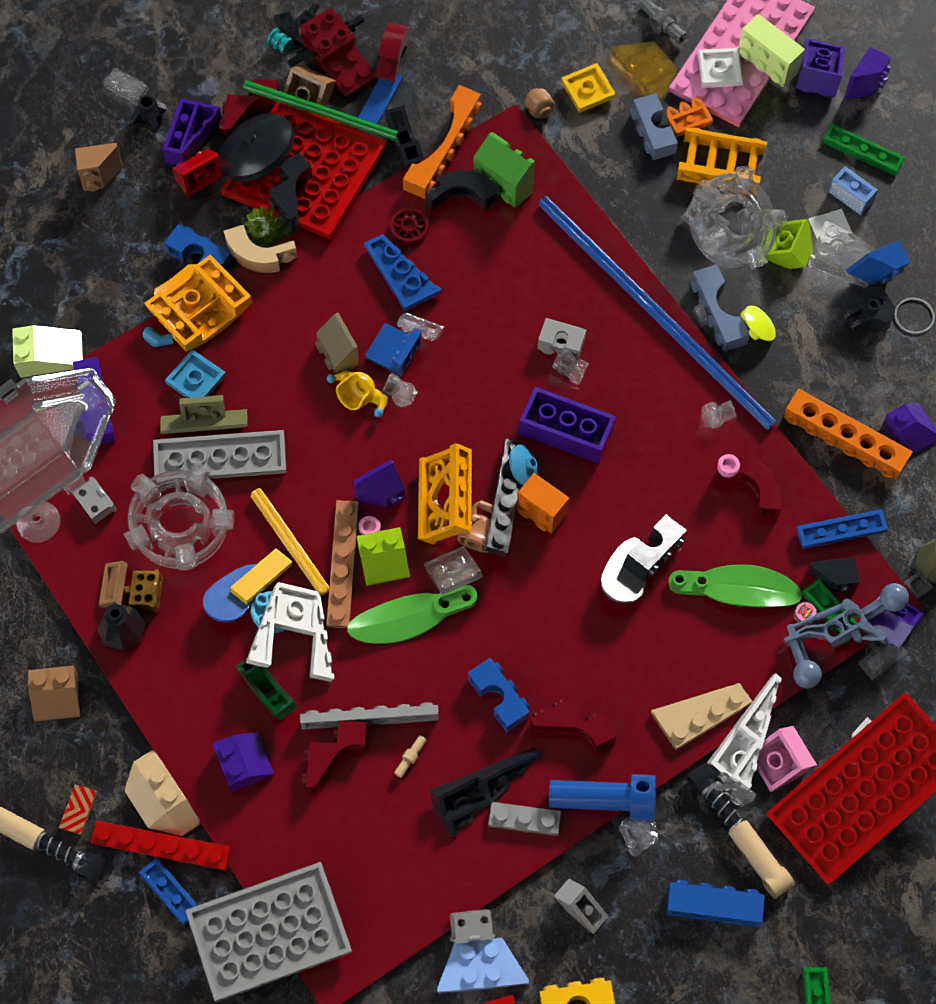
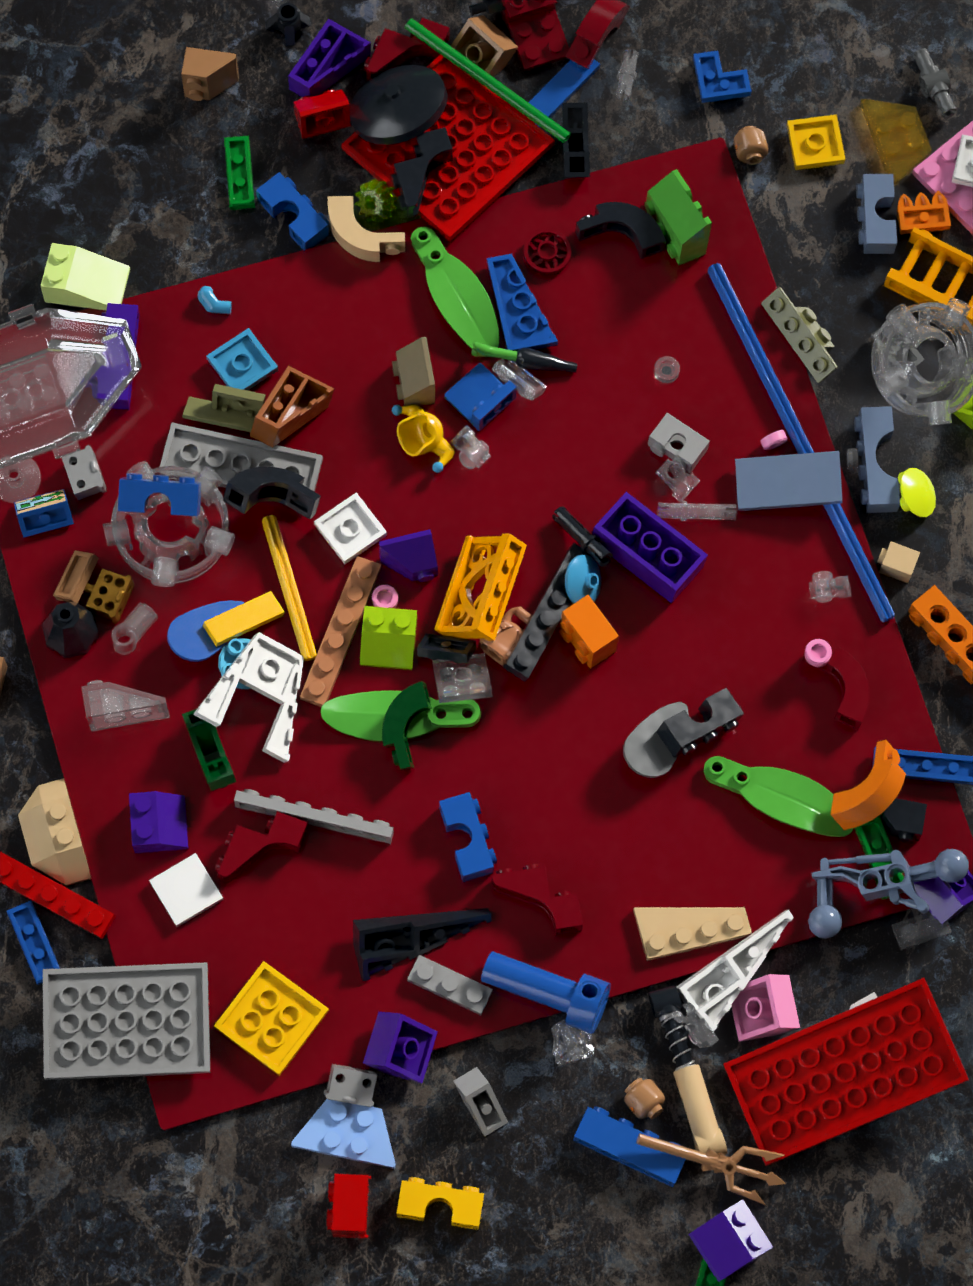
camera: 15 degrees right, 5 degrees up
(70, 541) = (43, 513): none -> blue panel
(143, 499) = (183, 494): none -> blue arch
(146, 235) = (239, 172): none -> green tile
(173, 610) = (133, 626): none -> clear piece
(183, 674) = (115, 705): none -> clear slope
(198, 303) = (272, 274): light orange slope -> none
(246, 398) = (290, 406): none -> dark orange wedge
(250, 463) = (271, 484): none -> black arch
(283, 808) = (186, 890): none -> white tile
(324, 480) = (350, 528): none -> white plate
(350, 276) = (456, 291): none -> bright green plant
(387, 891) = (271, 1018): none -> yellow plate
(410, 756) = (345, 875): tan bar -> none
(412, 618) = (398, 718): none -> dark green arch
(419, 309) = (525, 358): none -> black piece
(423, 176) = (582, 196): orange arch -> none
(426, 79) = (627, 75): none -> clear pin
(432, 550) = (446, 648): none -> black plate
(498, 67) = (717, 85): none -> blue plate
(501, 881) = (400, 1046): none -> dark purple slope
(519, 434) = (588, 542): none -> black pin
(533, 287) = (666, 369): none -> clear tile
(585, 389) = (696, 511): none -> clear pin
(628, 230) = (802, 333): none -> olive bracket
(635, 315) = (774, 440): none -> bright pink tile
(658, 342) = (788, 481): none -> sand blue tile
(713, 861) = (644, 1098): none -> medium nougat head
(763, 380) = (898, 561): none -> tan brick
(792, 894) = (719, 1163): none -> medium nougat piece
(804, 611) = (849, 848): tile -> none
(812, 561) = (874, 794): none -> orange arch
(823, 954) = (730, 1240): none -> dark purple slope

